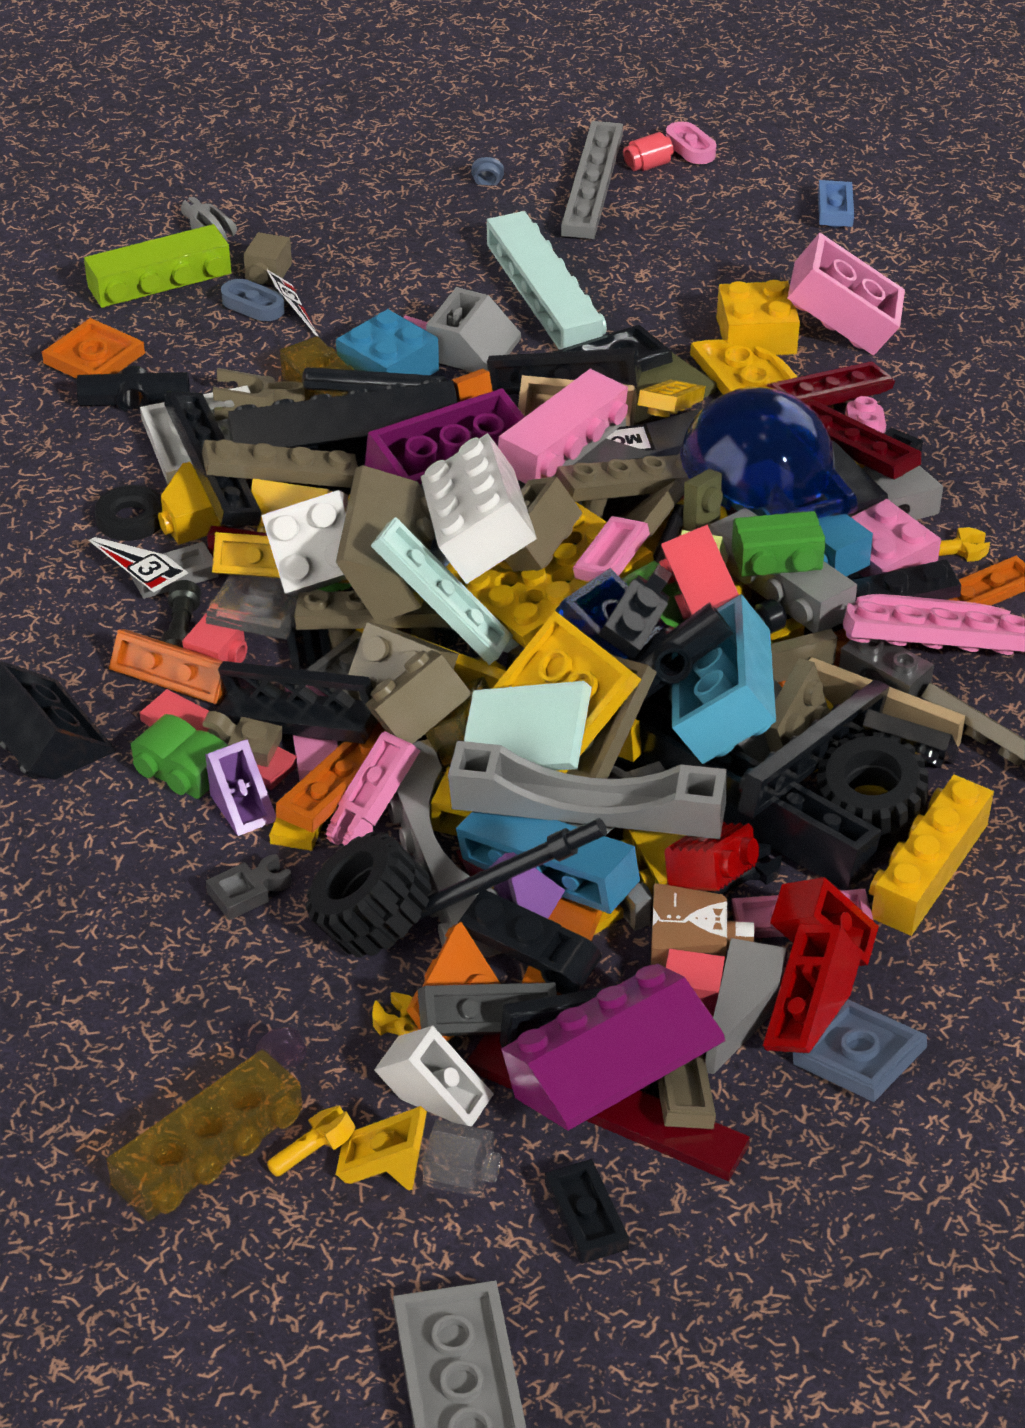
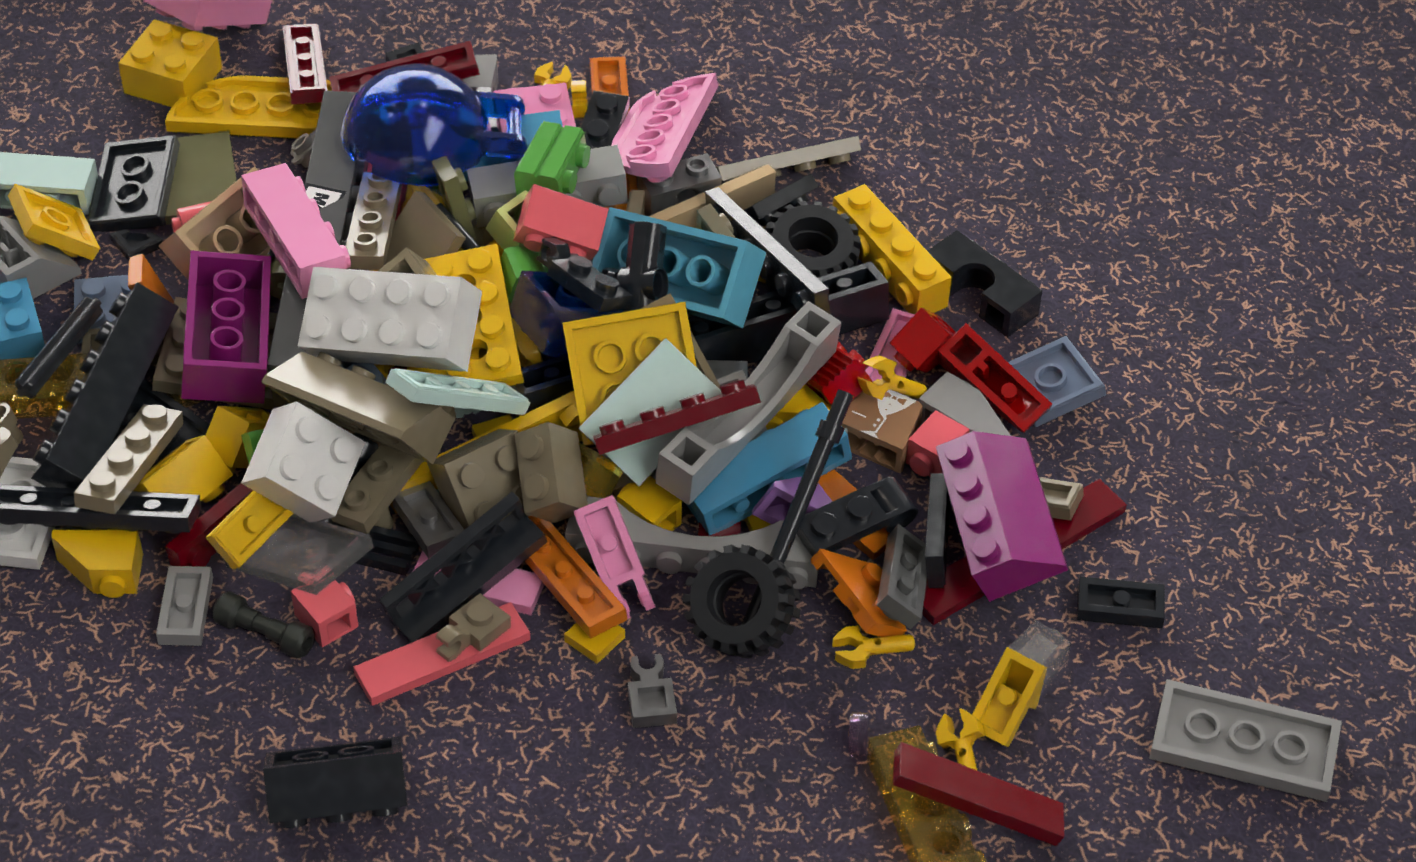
camera: 65 degrees left, 5 degrees up
(128, 528) = (57, 592): black tyre -> none
(148, 567) = (167, 621): sticker -> none
(167, 666) = (327, 652): orange tile -> none
(175, 754) = (456, 684): bright green brick -> none
(239, 788) = (535, 656): medium lavender slope -> none
(239, 1159) = (978, 794): none -> dark red tile
(433, 1075) = (942, 644): white slope -> none
(515, 324) = (53, 223): none -> yellow plate
(524, 743) = (692, 411): none -> dark red plate
(611, 548) = (483, 265): bright pink tile -> none
(613, 363) = (161, 212): black fence -> none
(670, 397) = (266, 153): yellow plate -> none
(724, 898) = (889, 380): none -> yellow bar
(867, 412) = (348, 59): bright pink plate -> none
(938, 551) = (579, 98): none -> yellow bar
(946, 971) = (1007, 297): none -> black arch

